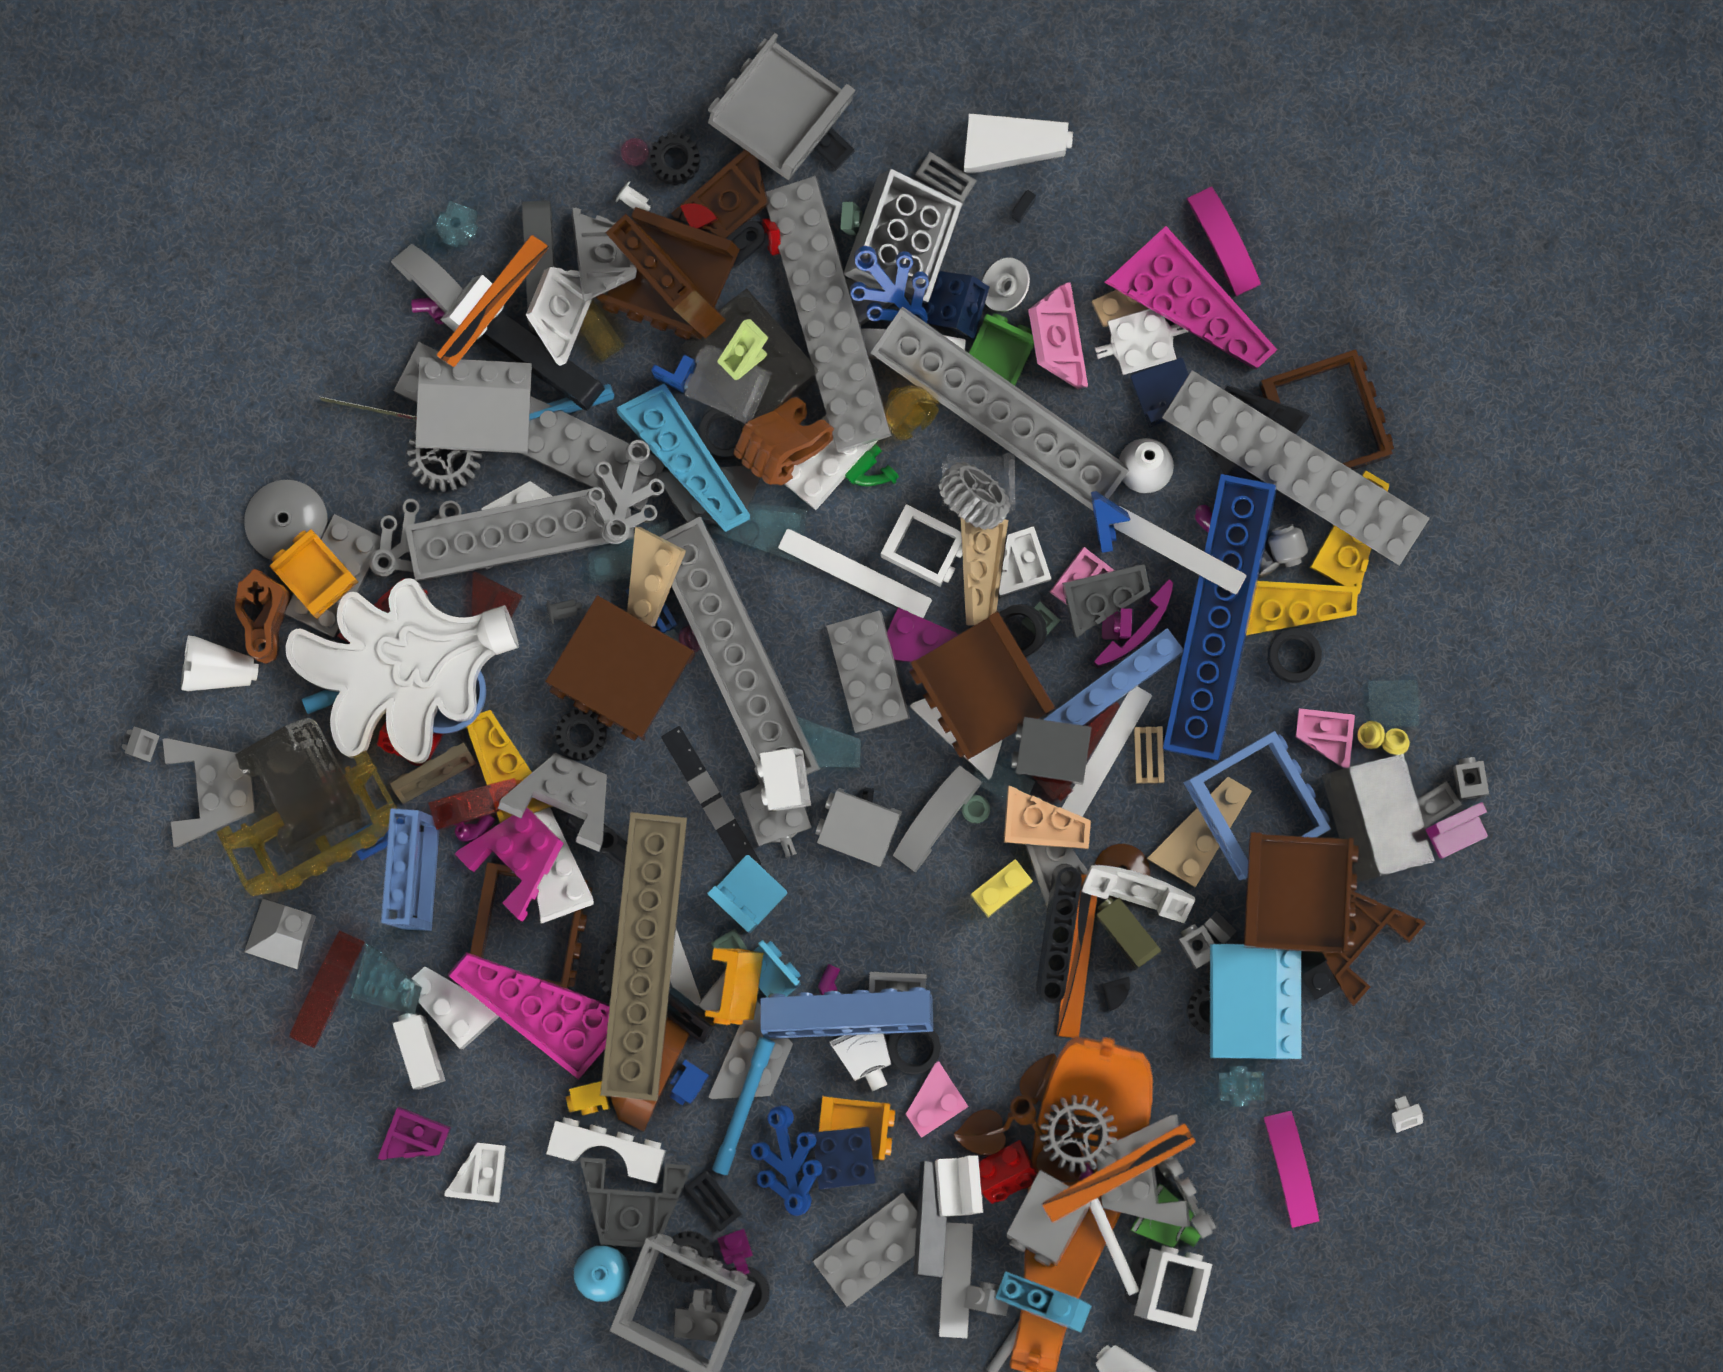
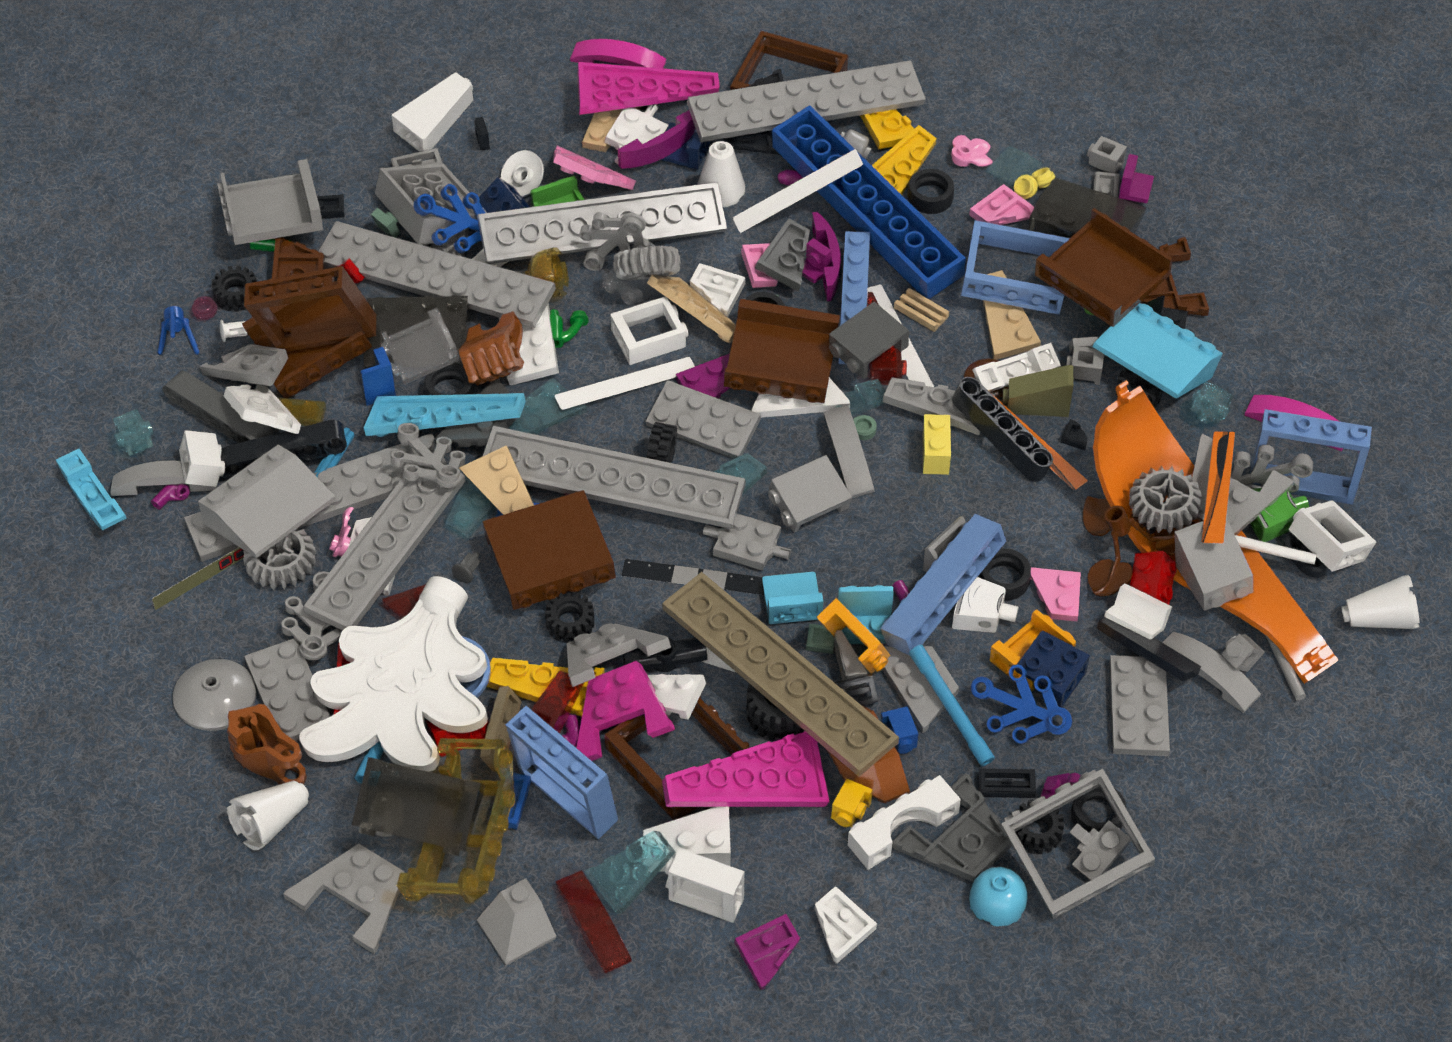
camera: 55 degrees left, 30 degrees down
(141, 744) = (271, 909): light grey tile -> none
(313, 573) = (280, 689): light orange panel -> none
(379, 245) = (89, 490): none -> medium azure slope
(492, 301) = (209, 438): orange sticker -> none
(498, 490) = (340, 543): none -> bright pink plate
(597, 141) = (174, 322): none -> blue plant
(743, 350) = (408, 311): yellowish green slope -> none
(784, 779) = (734, 490): white brick -> none
(803, 667) = (662, 442): none -> black tyre
(967, 431) = (629, 224): none -> light grey plant
(1040, 823) = (915, 384): light nougat wing -> none
(1043, 1301) = (1278, 606): medium azure slope -> none
(1107, 513) = (732, 219): blue slope -> none
(1108, 366) = (638, 154): none -> magenta slope
(1231, 1225) = (1320, 432): none -> medium blue window
(1381, 651) = (972, 150): none -> bright pink plate
(1406, 1116) = (1315, 331): white tile -> none

